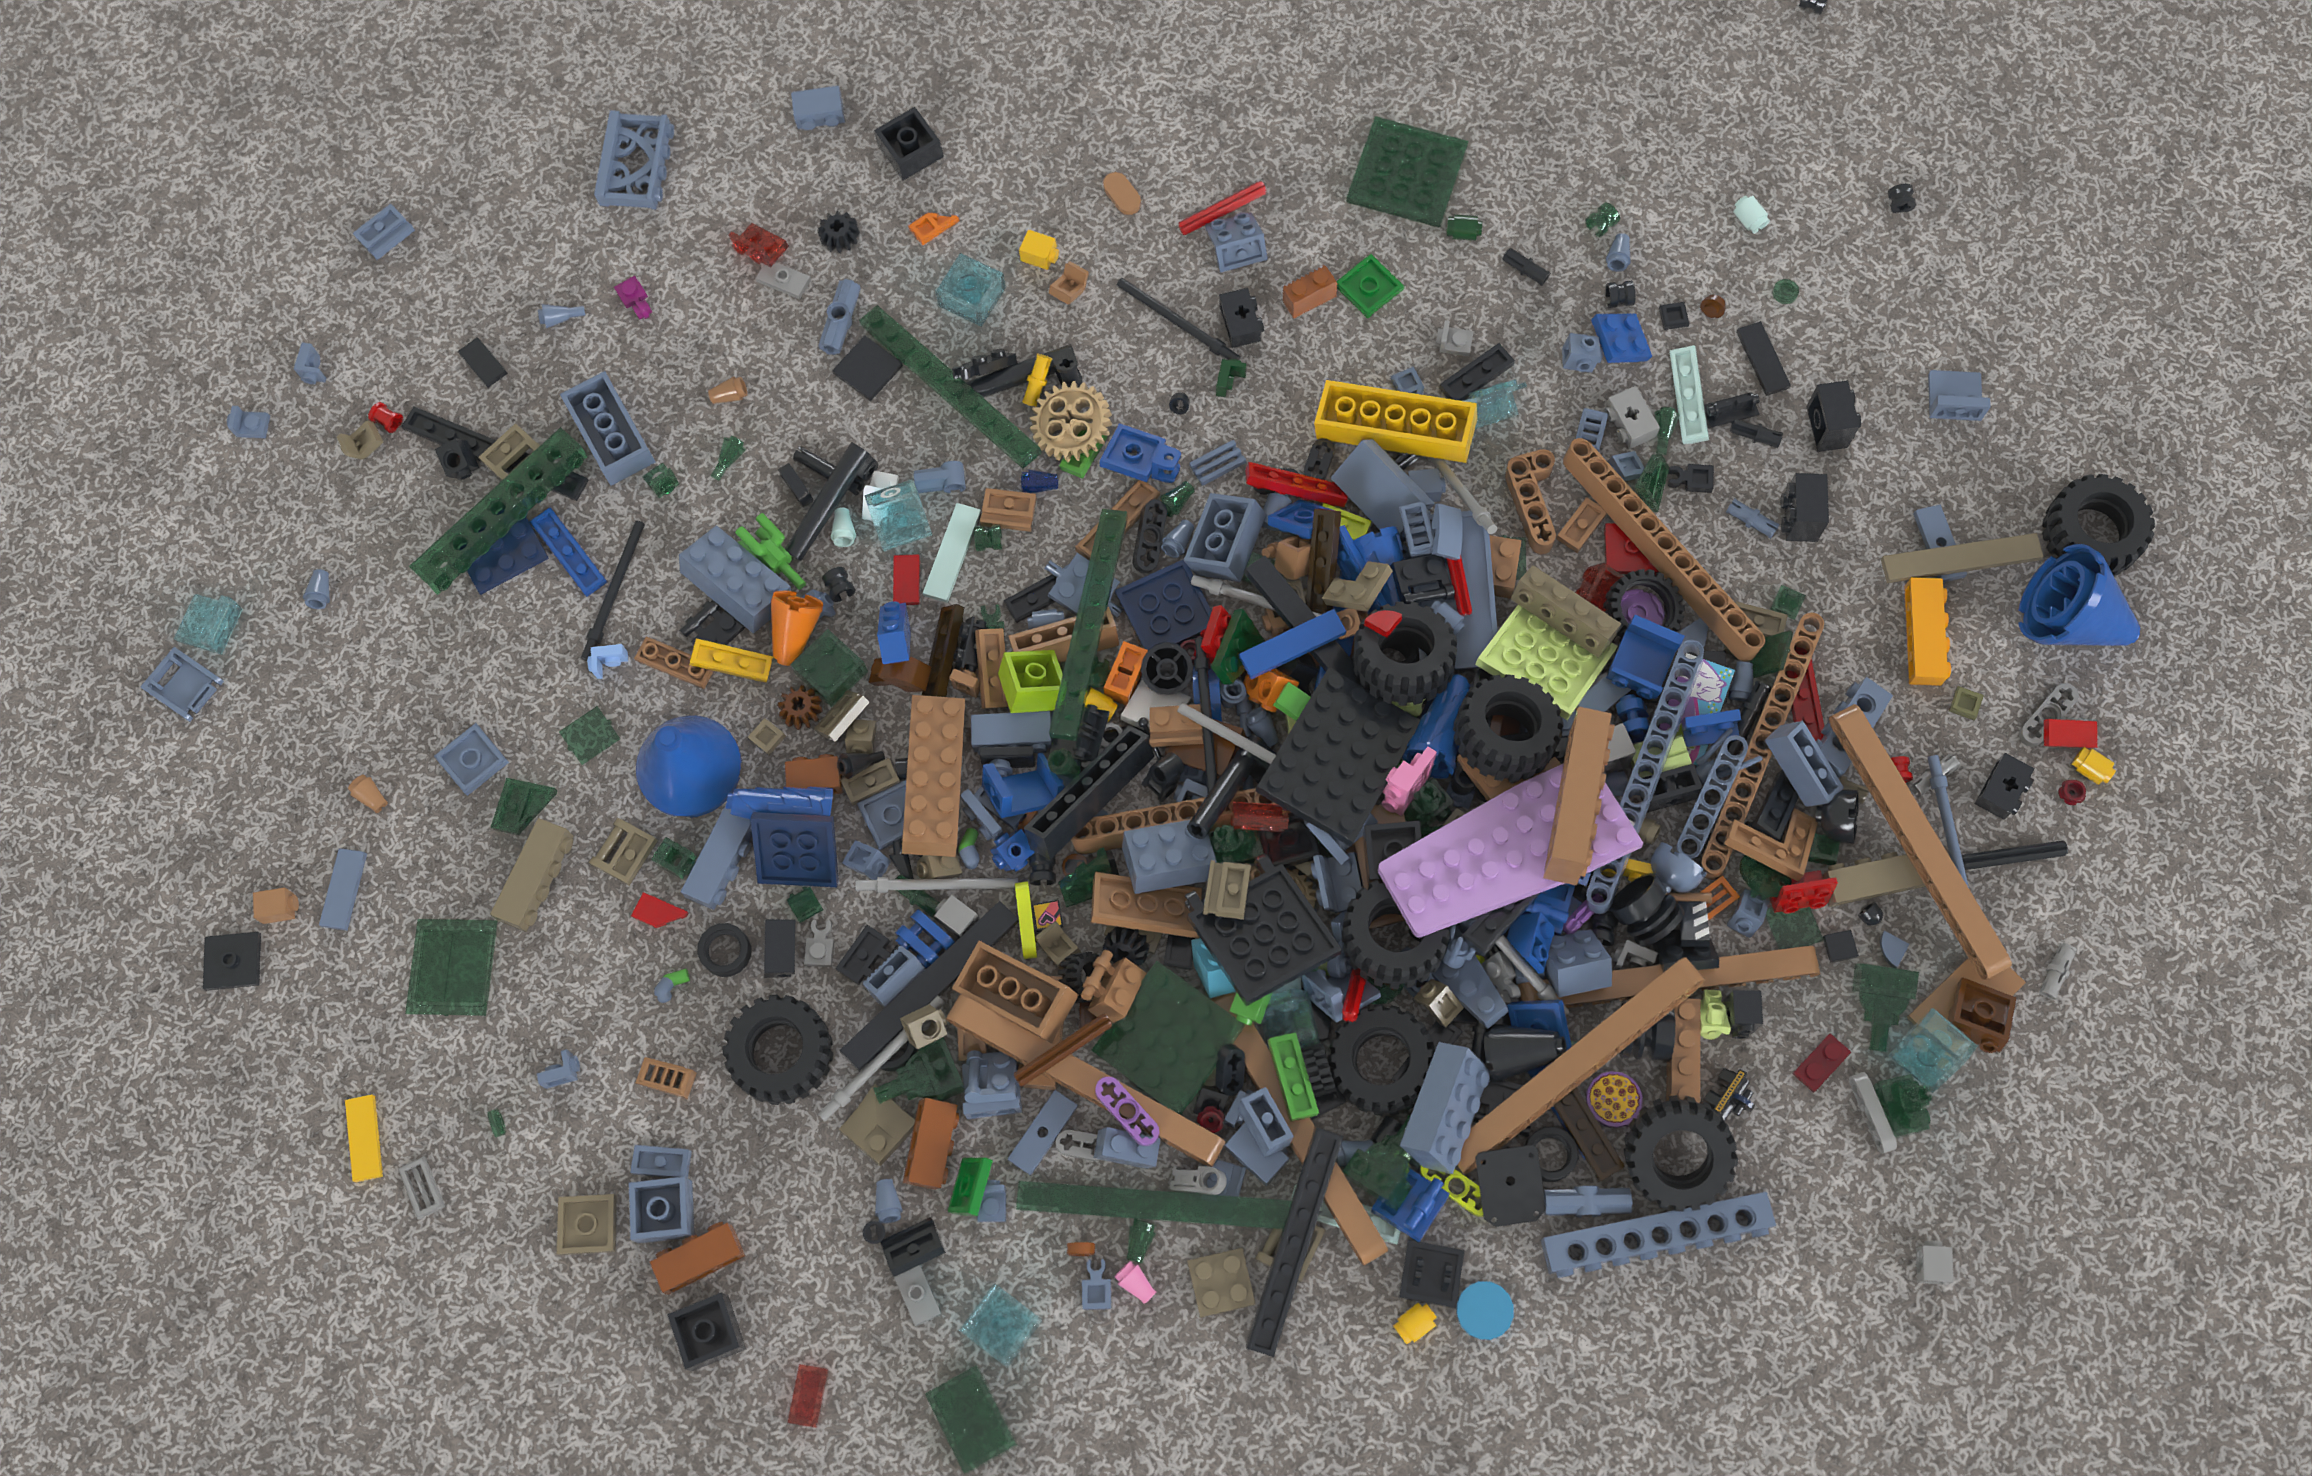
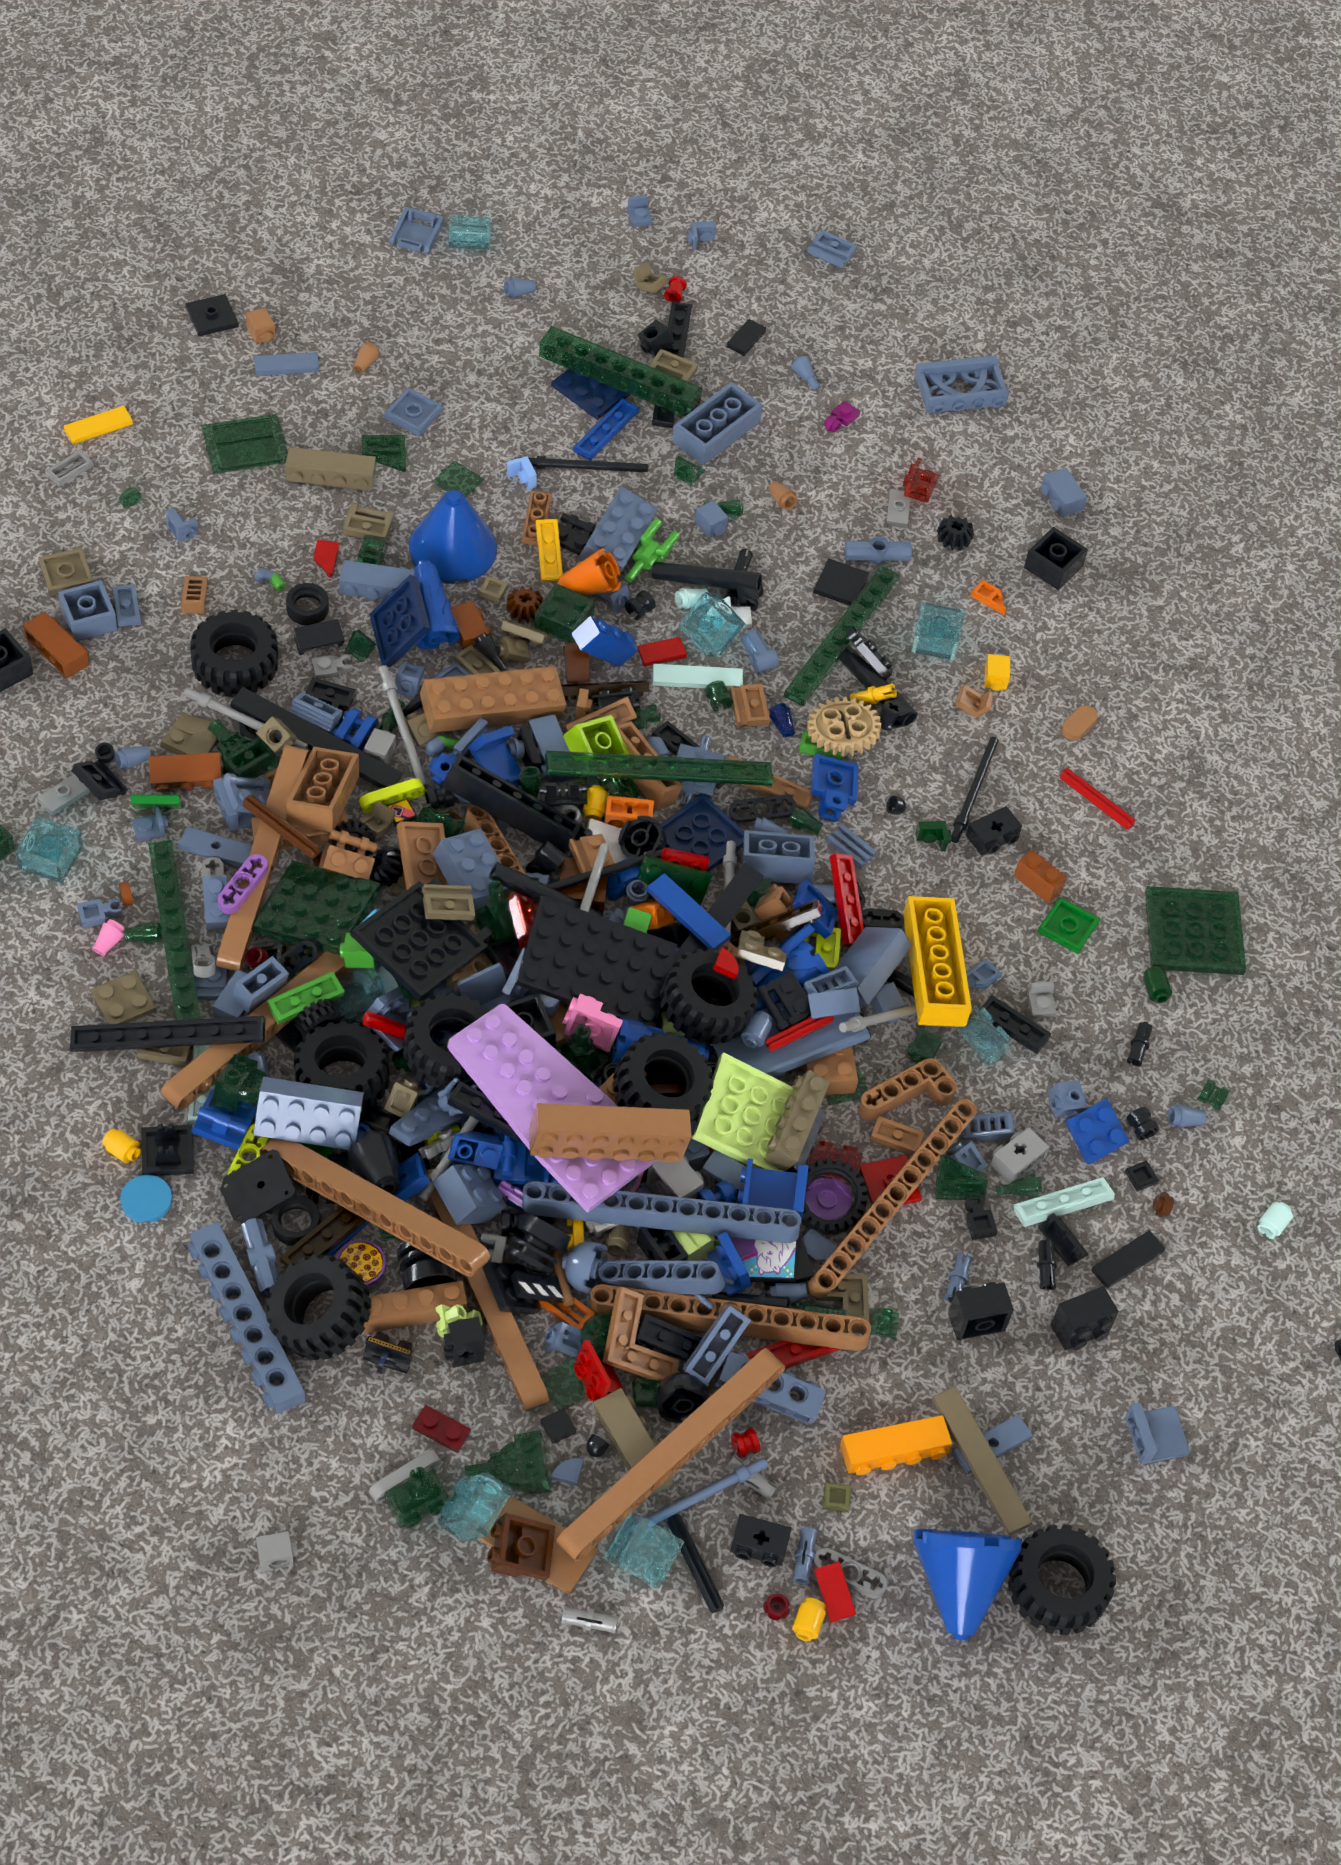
camera: 60 degrees right, 15 degrees down
(742, 474) = (711, 519): none -> sand blue brick
(795, 485) = (718, 555): black beam -> none
(1237, 241) = (1067, 812): sand blue bracket -> none
(1486, 467) = (924, 1046): none -> clear green bracket
(1785, 291) = (1207, 1267): clear green tile -> none
(2002, 899) = (644, 1550): none -> clear light blue bracket
(2025, 750) = (802, 1567): none -> sand blue pin

